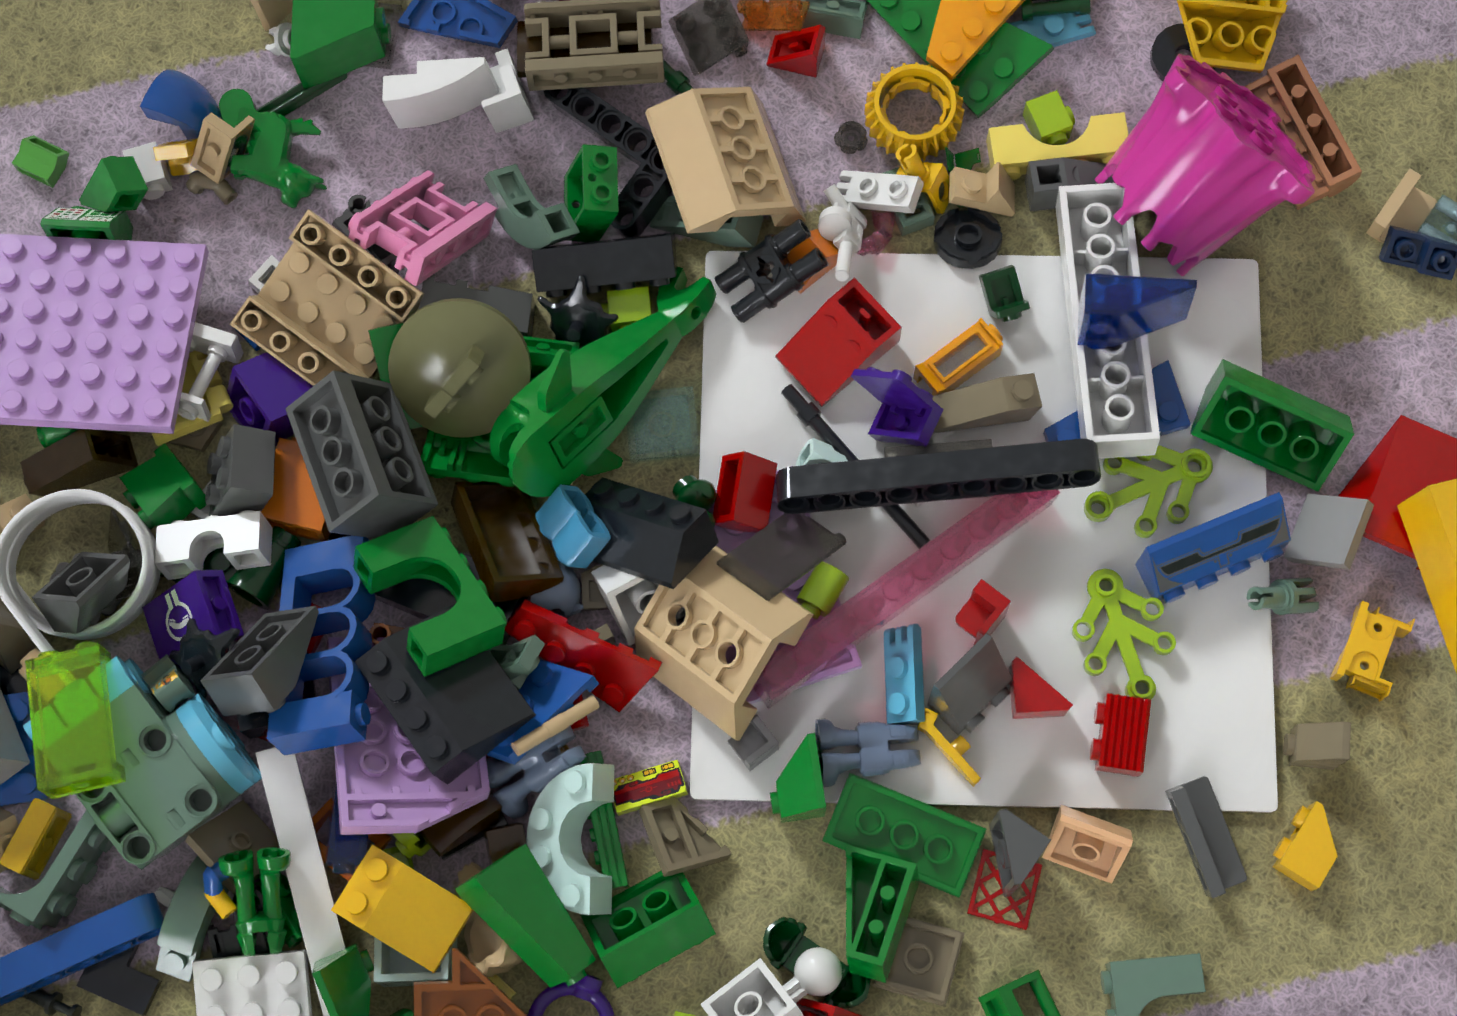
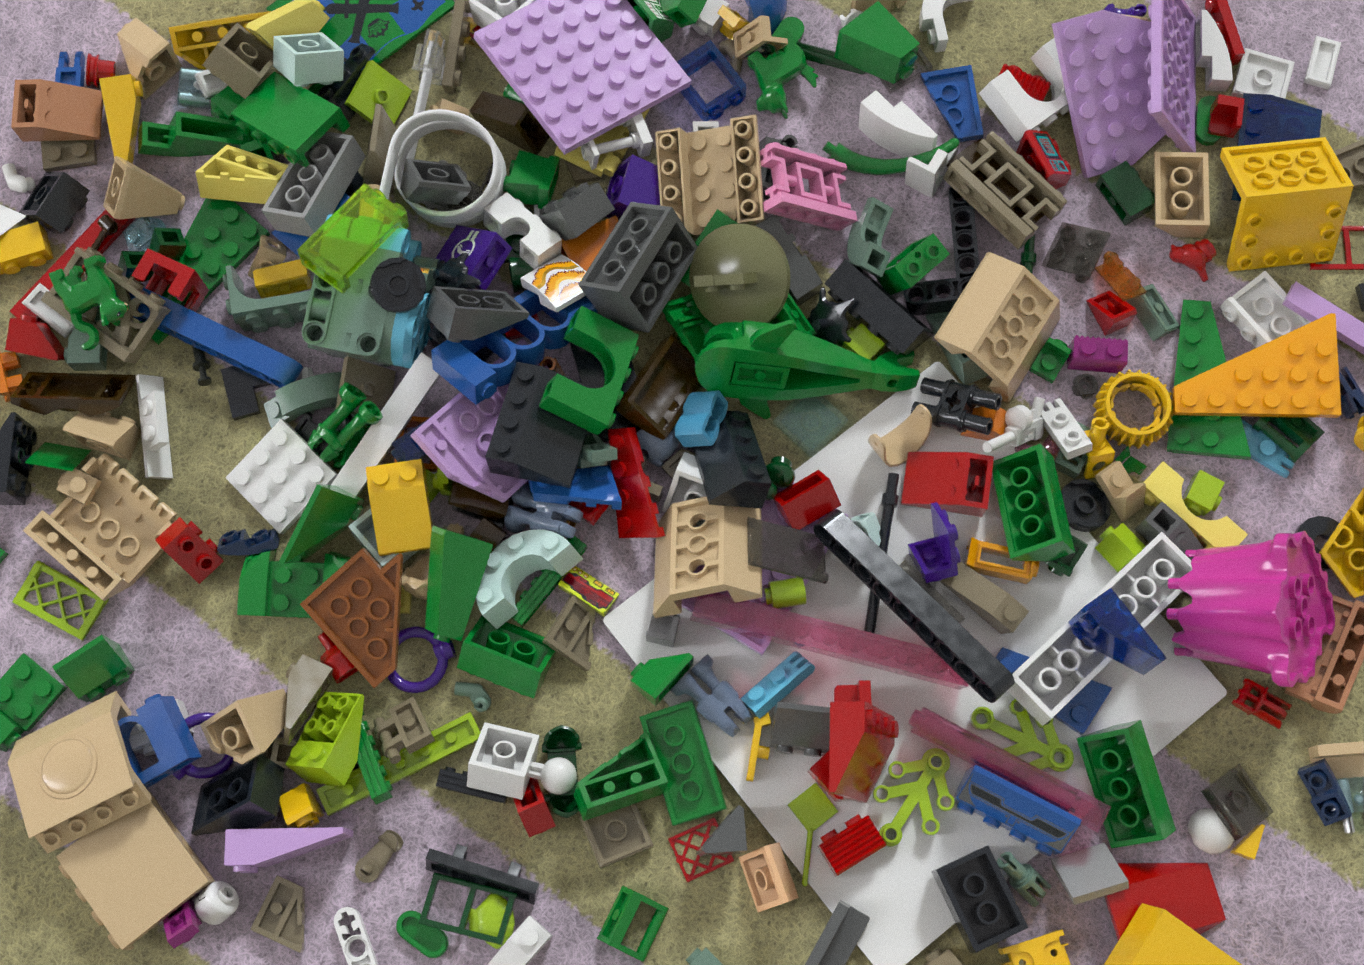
camera: 45 degrees right, 0 degrees up
(167, 716) = (398, 285): none -> black tile
(215, 893) = (327, 398): arm -> none
(257, 219) = (733, 97): none -> clear blue window
(302, 553) = (556, 283): none -> slope
(459, 140) = (877, 166): none -> green animal
(555, 725) = (574, 504): tan piece -> none
(661, 990) = (476, 693): none -> sand green arm
(758, 346) = (905, 438): none -> tan piece
(797, 146) = (1050, 359): none -> green bracket
(831, 99) = (1098, 354): none -> magenta brick
(932, 284) = (1032, 506): none -> green slope
(1036, 238) = (1119, 546): none -> lime brick
(1037, 641) = (858, 747): none -> red slope
(1055, 745) = (812, 810): none -> lime piece
(1165, 521) = (1007, 766): none -> clear pink brick
(1273, 654) = (979, 899): none -> black brick
(1295, 236) = (1264, 705): none -> red arm
(1367, 338) = (1237, 802): none -> clear smoke tile
(1374, 385) = (1209, 832): none -> white hair
(1415, 362) = (1249, 844): none -> yellow piece

